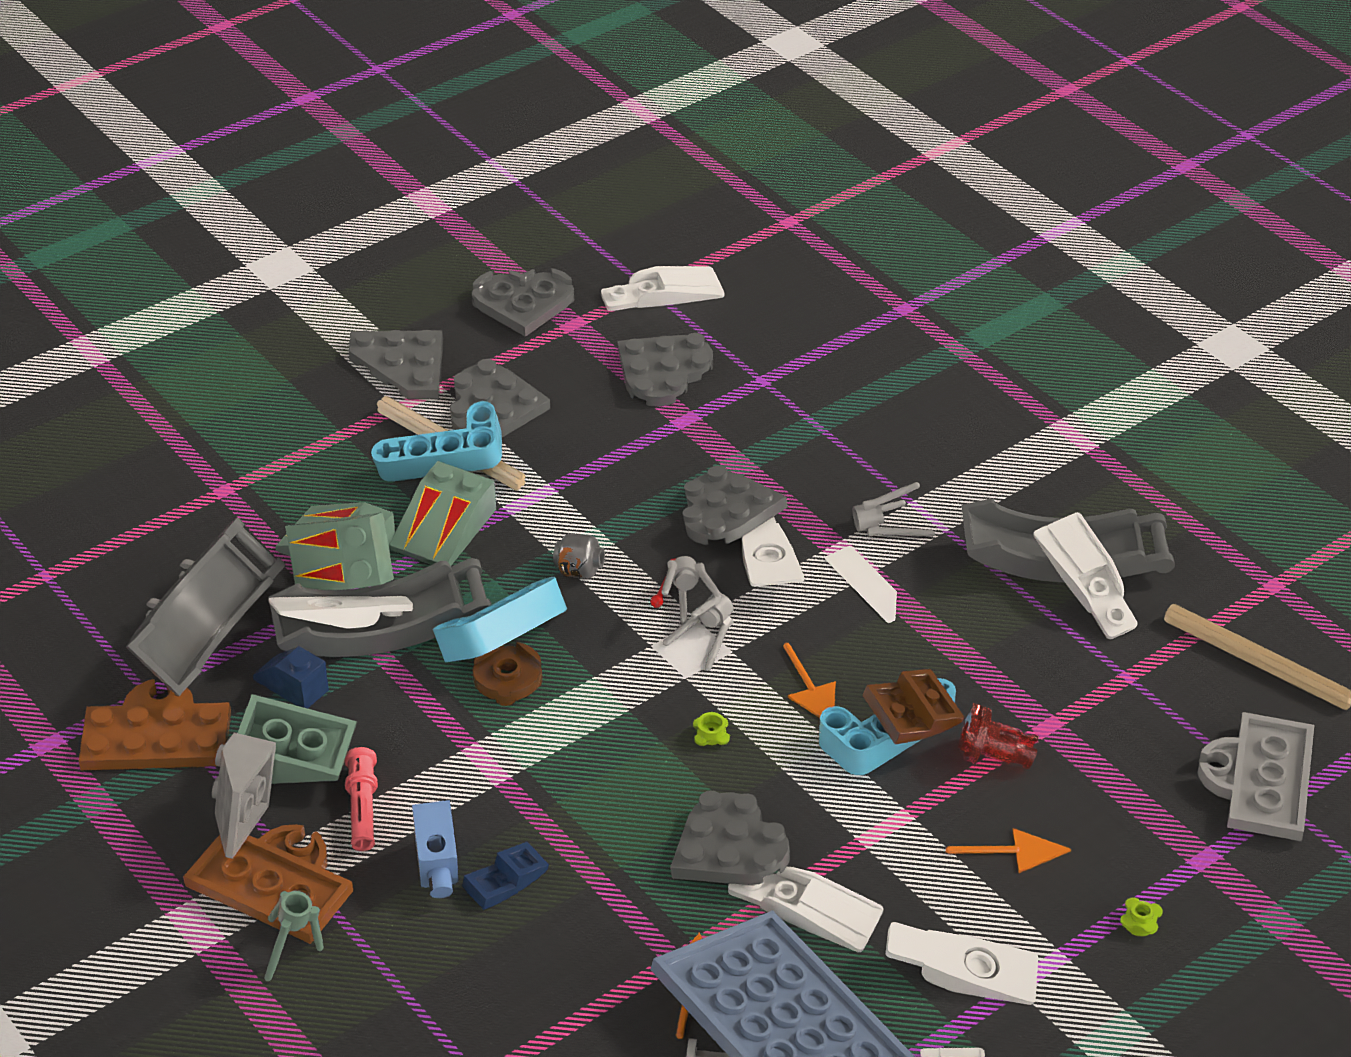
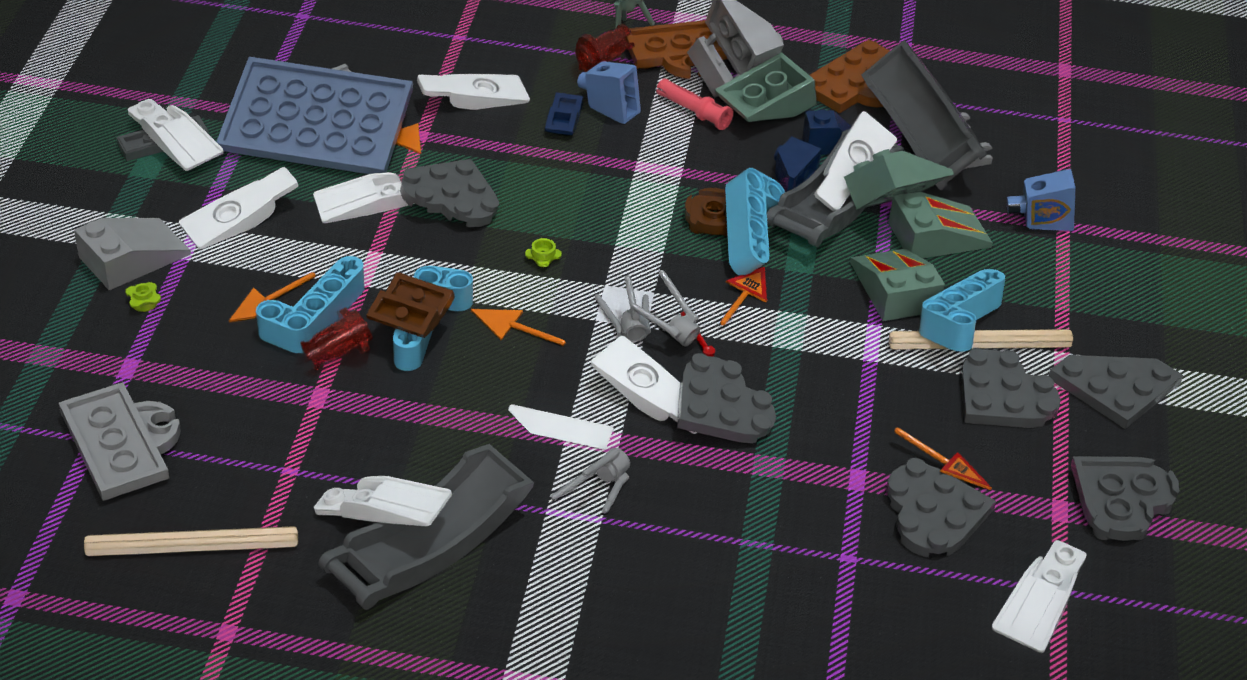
camera: 135 degrees right, 0 degrees up
(227, 484) = (1046, 201): none -> medium blue torso
(297, 809) = (709, 63): none -> light grey hinge
(375, 662) = (796, 162): none -> dark blue slope
(376, 907) = (605, 47): none -> clear red piece
(559, 966) = (475, 90): none -> white piece
(571, 597) = (750, 284): none -> piece
(578, 556) = (772, 304): flat silver head -> none
(606, 375) = (955, 467): none -> orange piece
(984, 789) = (316, 310): none -> medium azure beam
(1116, 979) = (127, 248): none -> light grey slope

